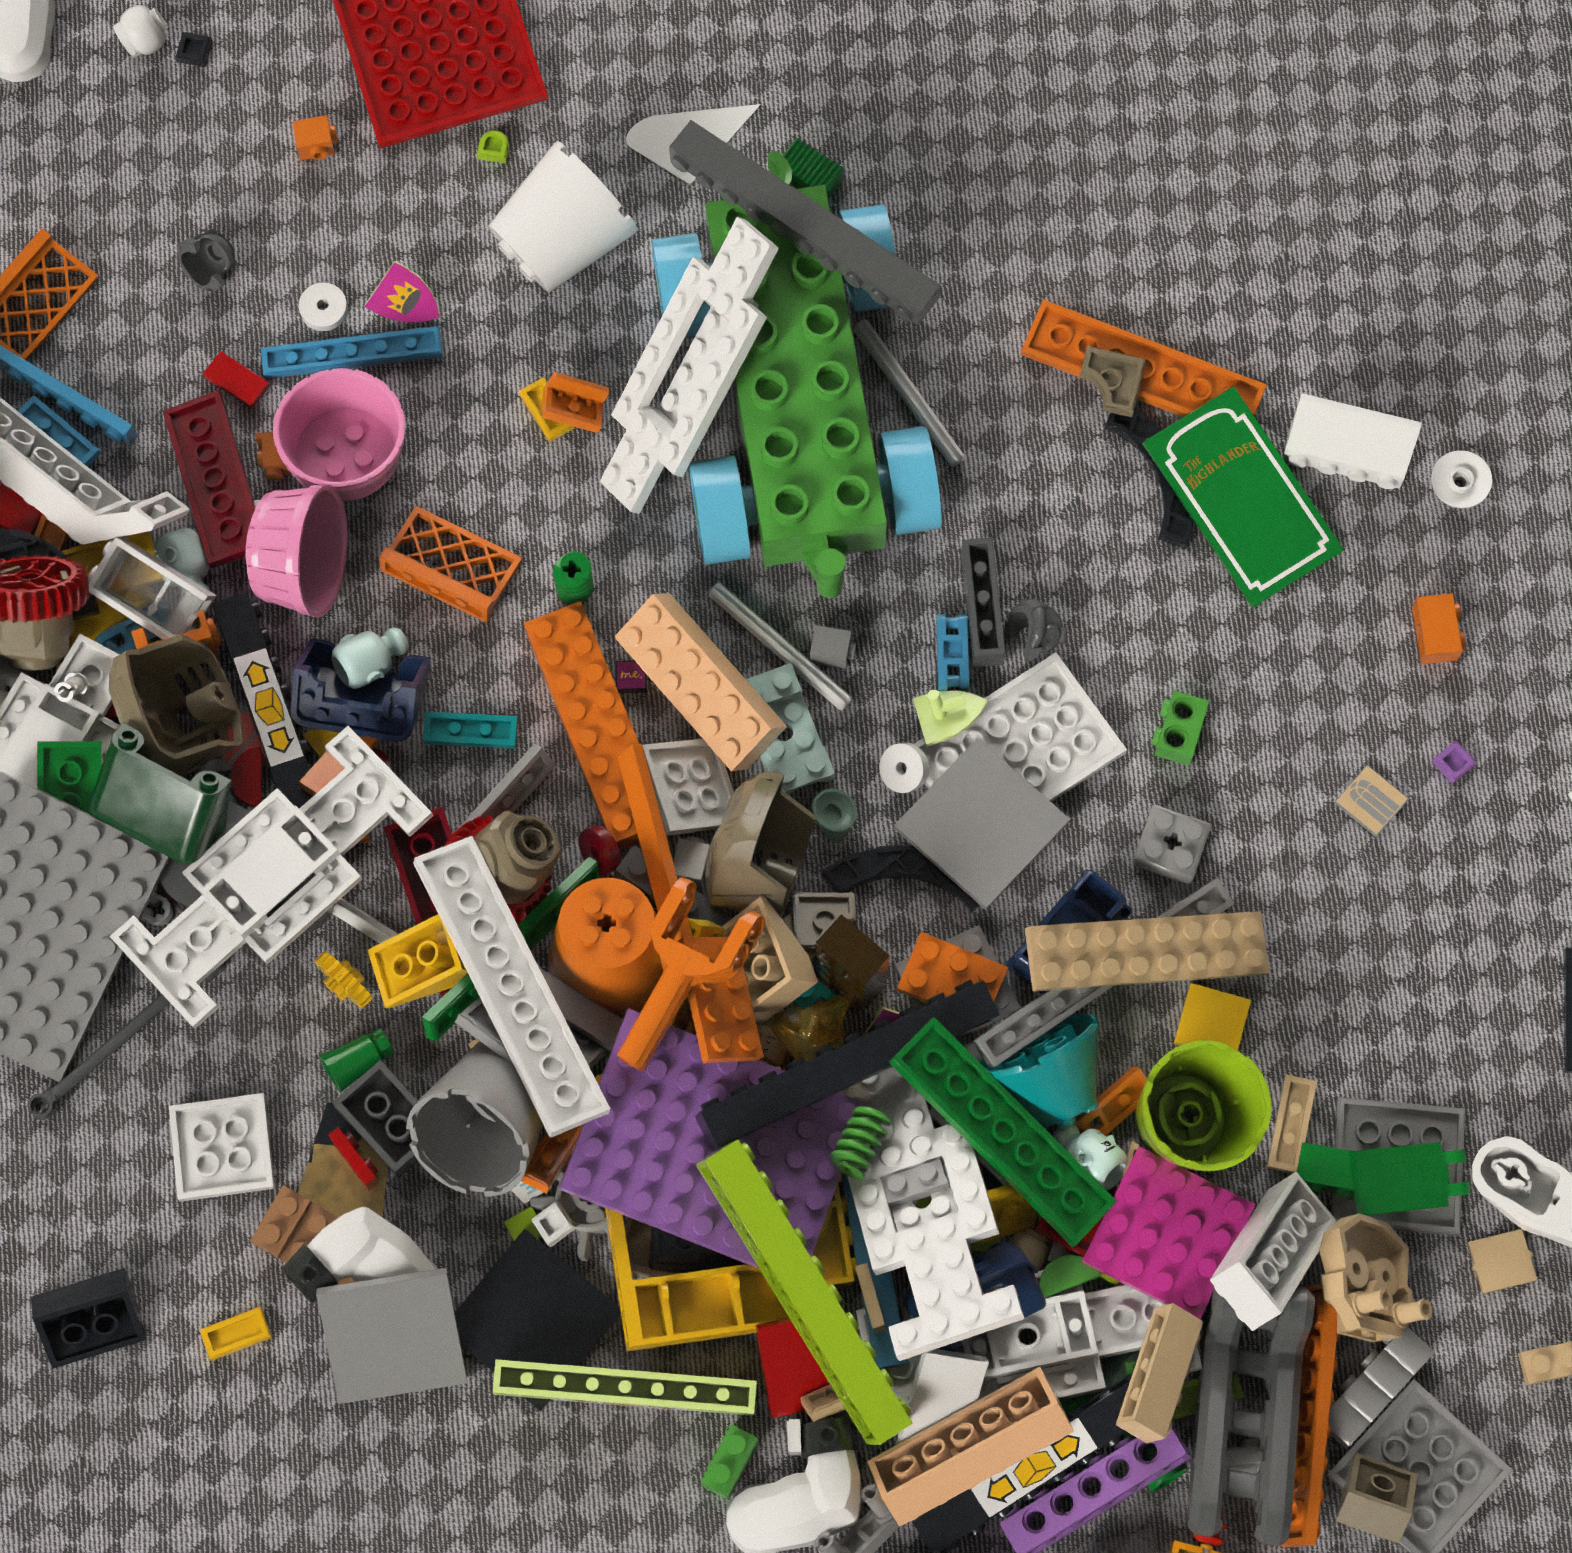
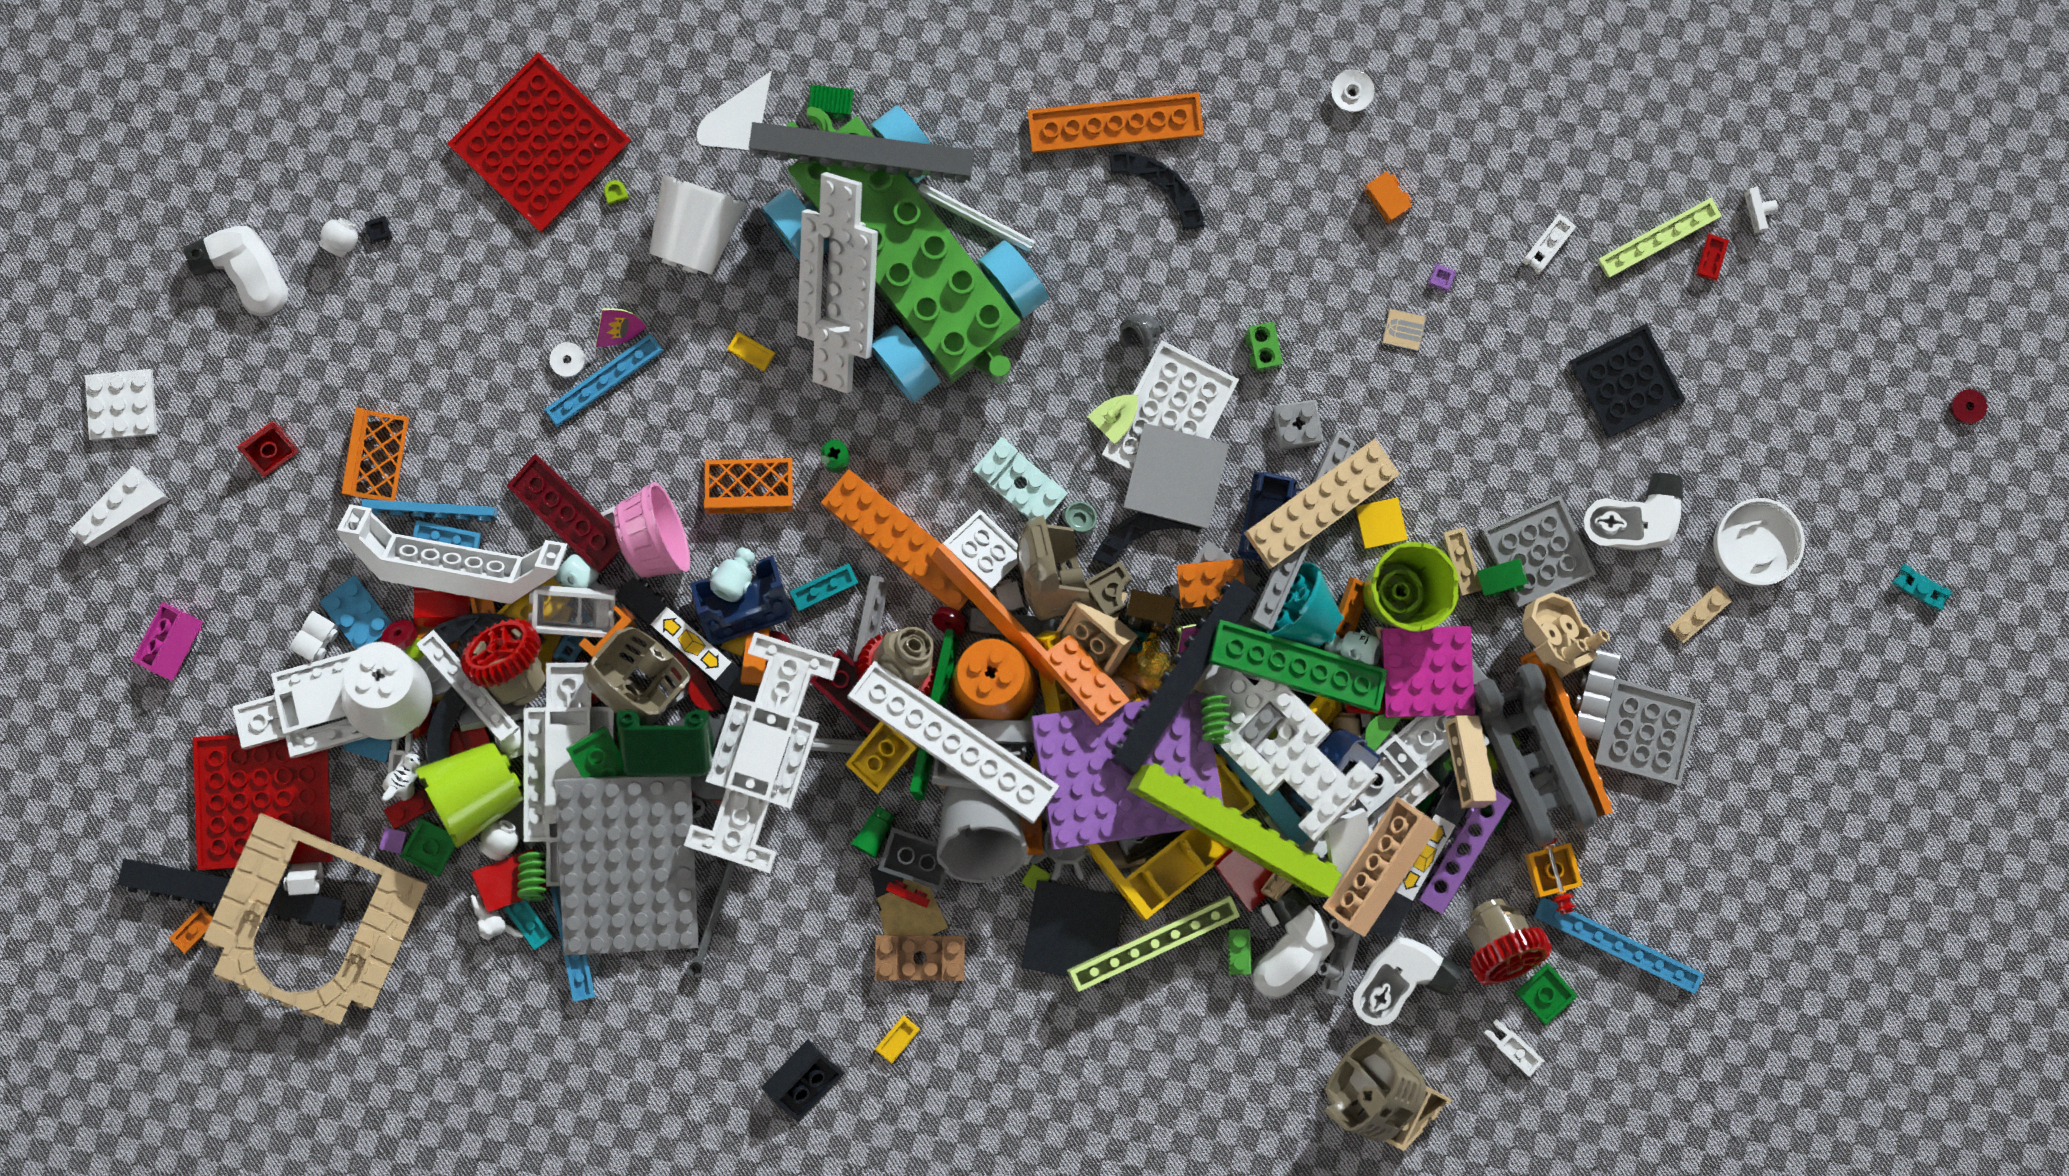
camera: 35 degrees left, 10 degrees up
(73, 685) = (563, 698): white pin -> none
(206, 259) = (475, 370): dark grey helmet -> none
(221, 1147) = (822, 932): white plate -> none
(236, 380) = (540, 439): red tile -> none
(269, 458) = (595, 476): dark orange brick -> none
(315, 138) = (496, 249): orange brick -> none
(340, 432) = (633, 441): bright pink piece -> none
(343, 980) = (837, 788): yellow gear -> none
(354, 1247) = (959, 949): white piece -> none
(392, 1335) = (997, 990): light grey tile -> none
(553, 1223) = (1054, 868): white tile -> none
(574, 402) = (768, 339): orange bracket -> none
(630, 677) = (904, 498): magenta tile -> none
(683, 970) = (1055, 678): orange piece -> none
(700, 681) = (952, 480): light nougat brick -> none
(780, 646) = (986, 428): white axle -> none
(832, 647) = (1020, 411): light grey brick -> none
(871, 1298) = (1272, 809): tan tile -> none
(891, 767) = (1111, 457): white piece -> none
(952, 652) = (1096, 373): dark azure plate -> none
(982, 602) = (1099, 332): dark grey brick -> none
(1115, 377) = (1101, 138): dark tan tile -> none
(1243, 497) = (1222, 174): green piece -> none
(1273, 1251) = (1499, 651): white brick -> none
(1351, 441) = (1273, 105): white slope -> none
(1377, 1498) = (1632, 762): dark tan slope -> none
(1404, 1178) = (1549, 560): green tile -> none
(1502, 1261) = (1629, 576): tan piece -> none

